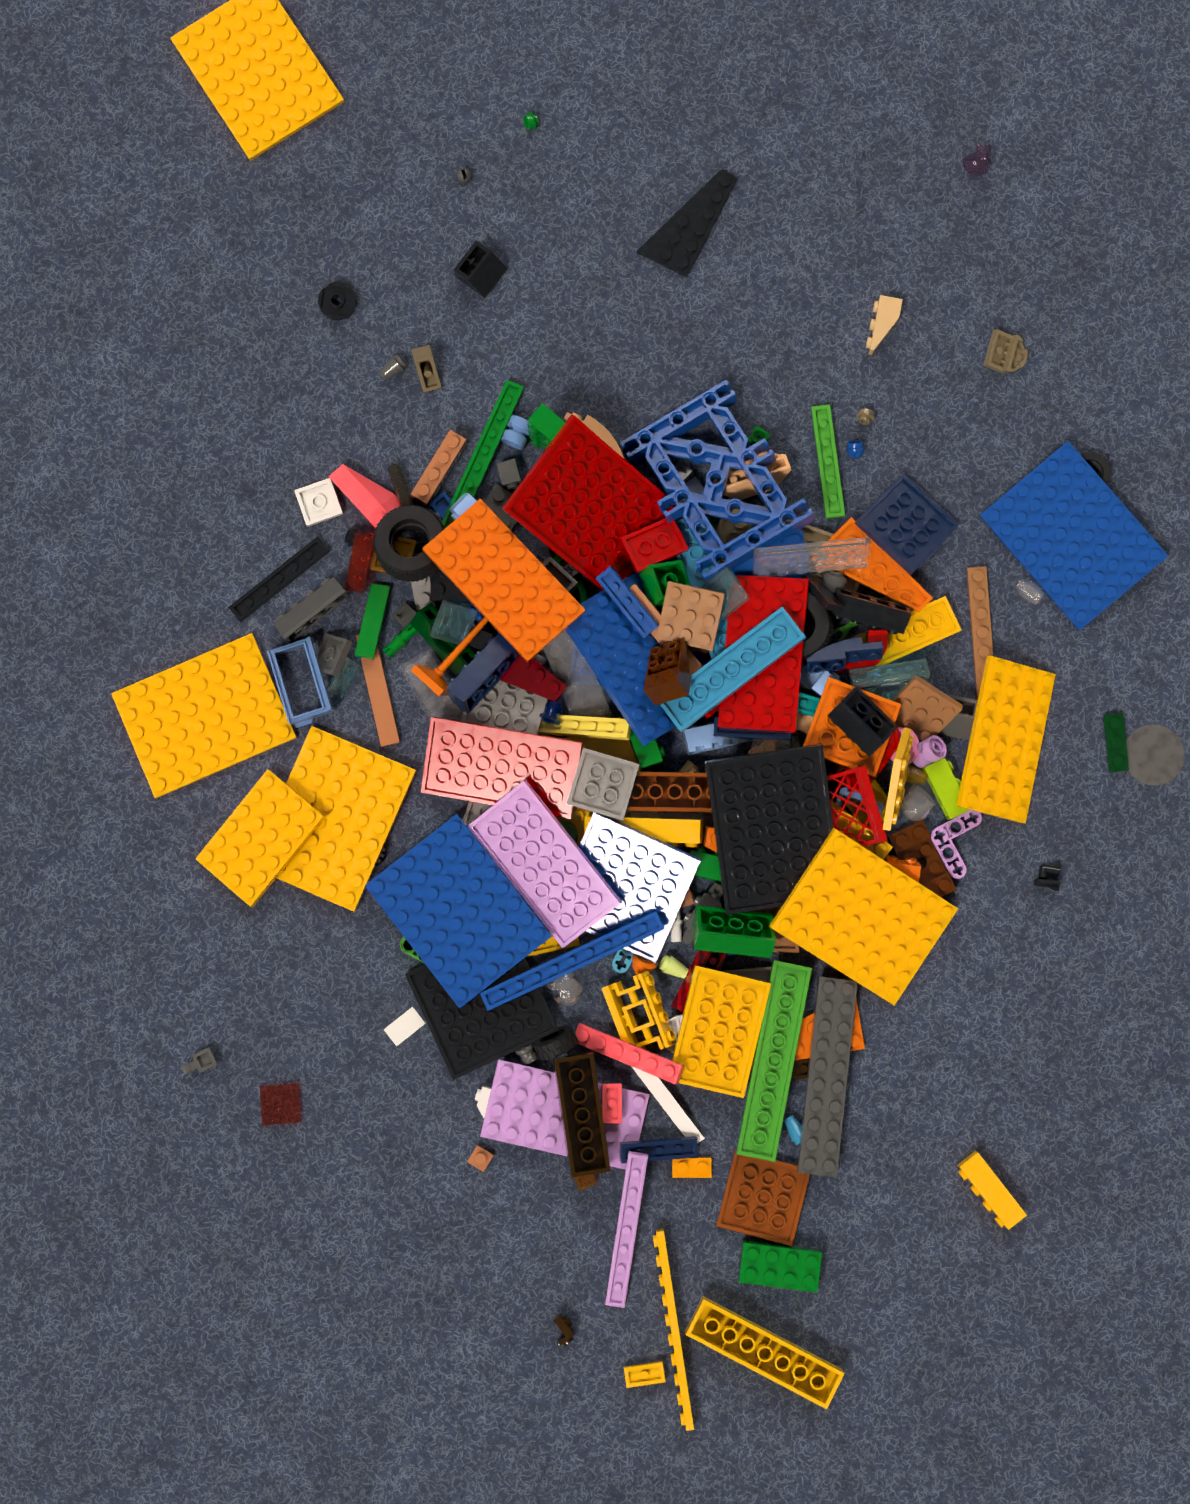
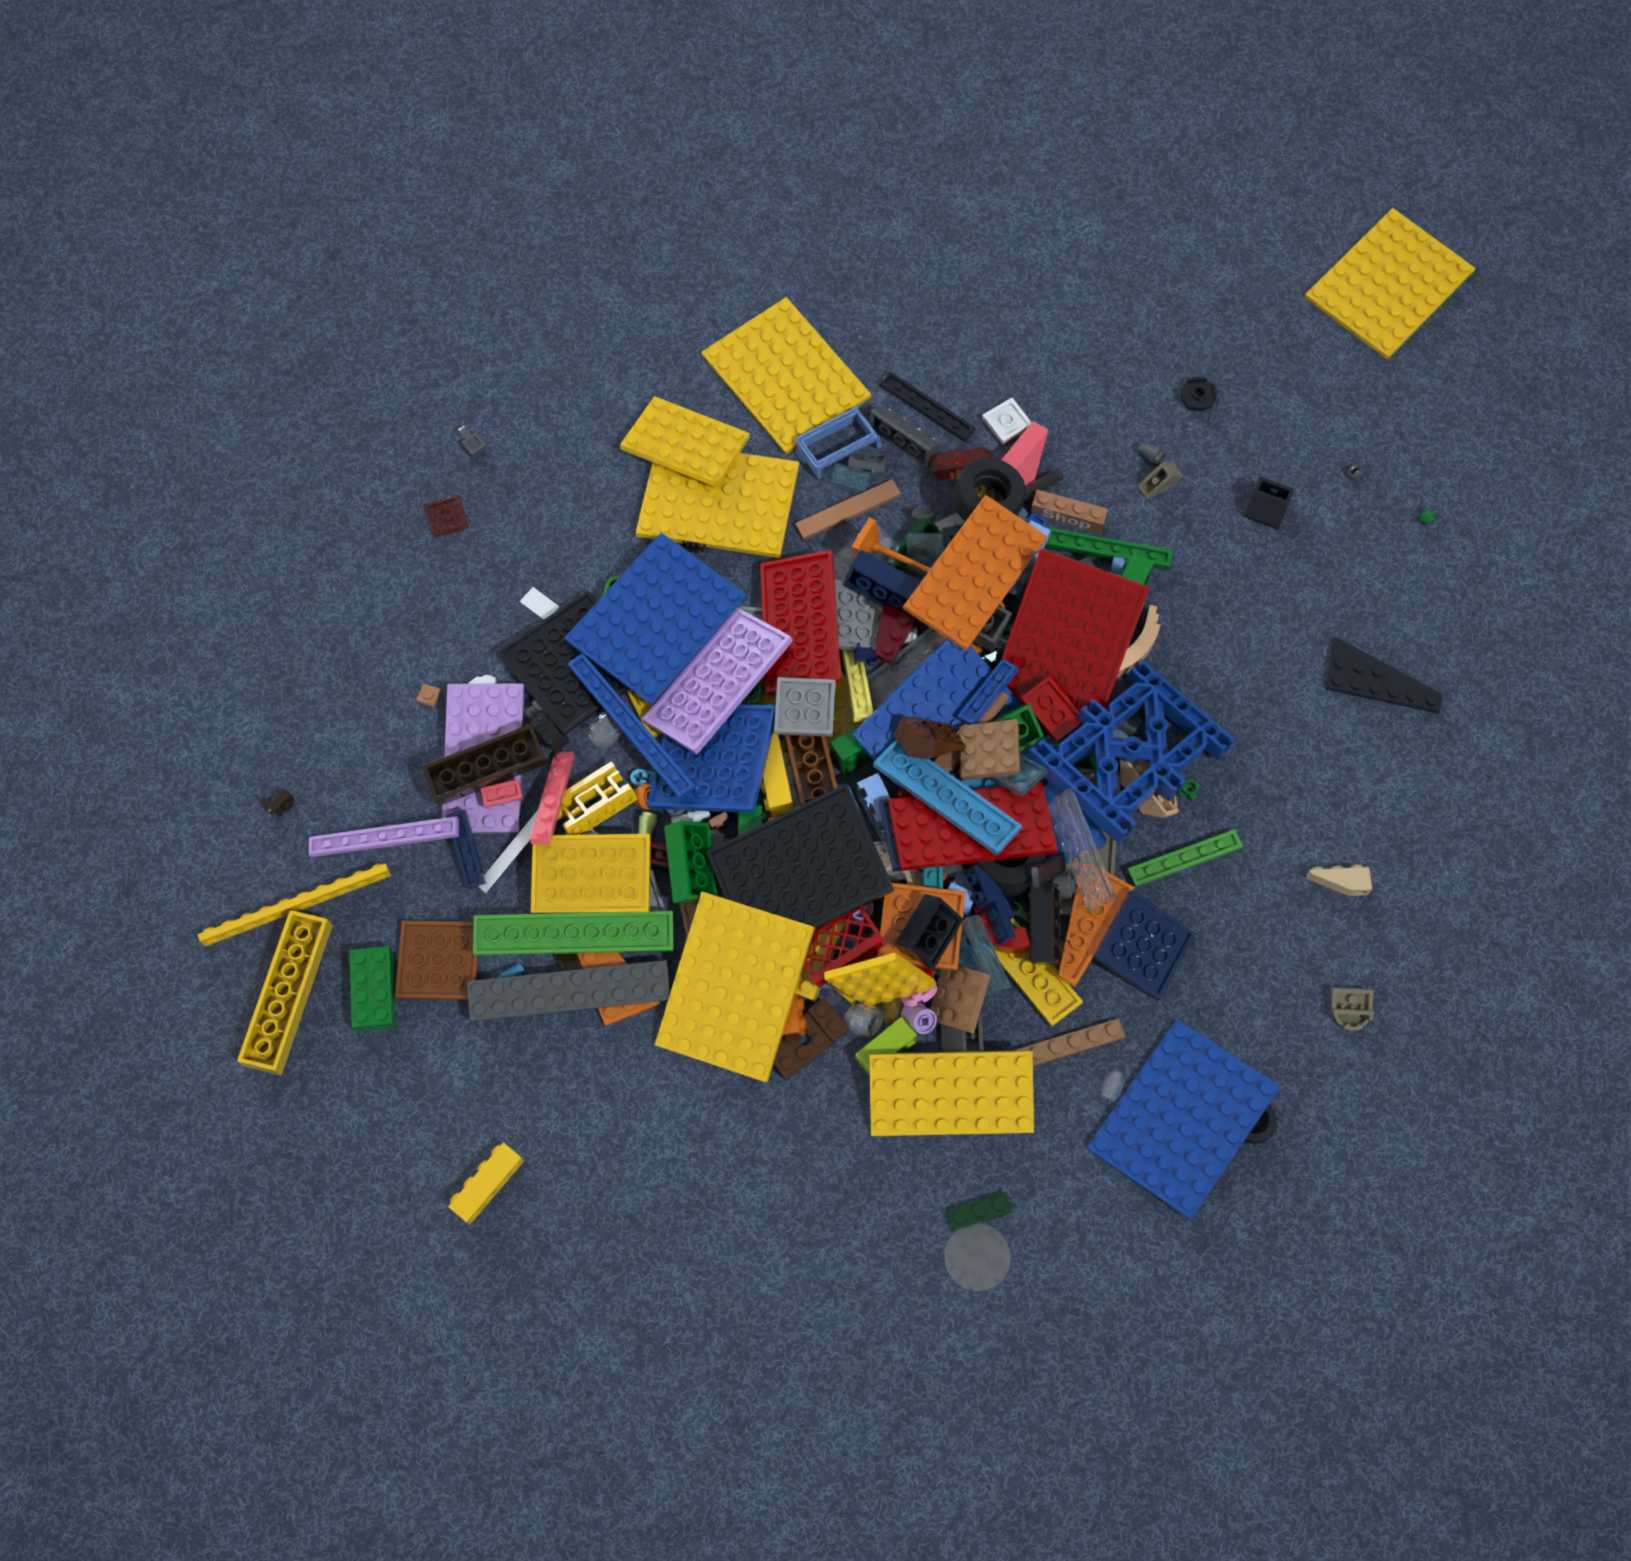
camera: 75 degrees right, 15 degrees down
(372, 621) = (909, 489): green tile -> none
(400, 640) = (897, 516): green pin -> none
(585, 1181) = (424, 791): clear orange plate -> none
(644, 1374) = (247, 887): yellow plate -> none
(692, 1167) = (455, 888): light orange plate -> none
(855, 449) = (1205, 881): blue plate -> none
(865, 416) = (1242, 884): dark tan plate -> none
(948, 835) = (839, 1061): lavender beam -> none
(978, 162) = (1539, 936): clear purple piece -> none
(1053, 869) = (826, 1166): black piece -> none

